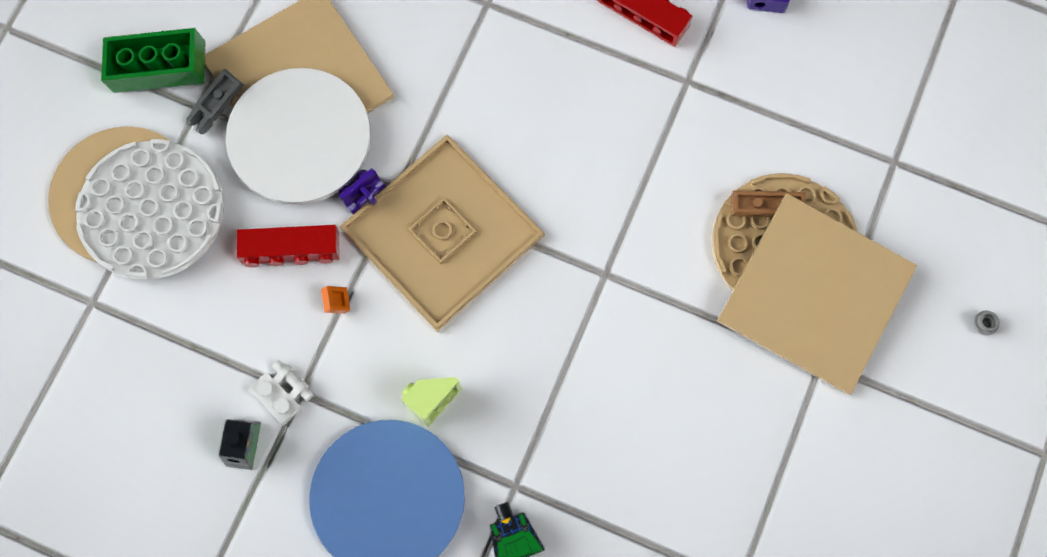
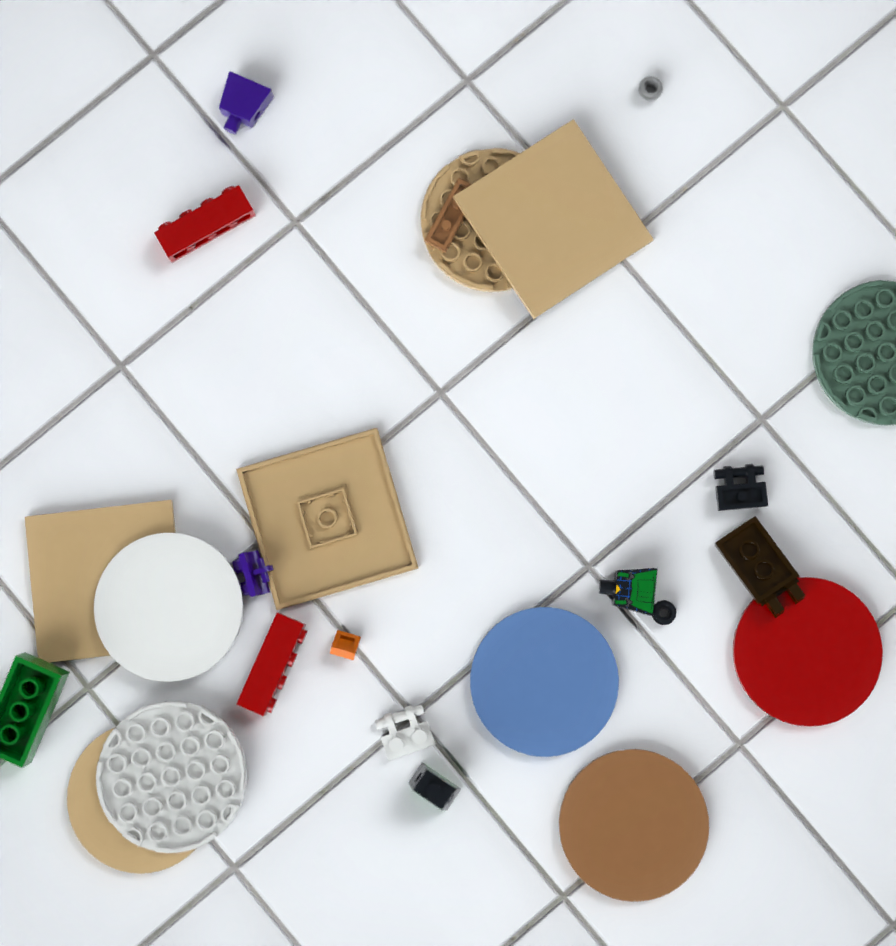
camera: 60 degrees left, 10 degrees up
(214, 101) = (93, 668): dark grey hinge -> none
(430, 397) = (479, 604): yellowish green slope -> none

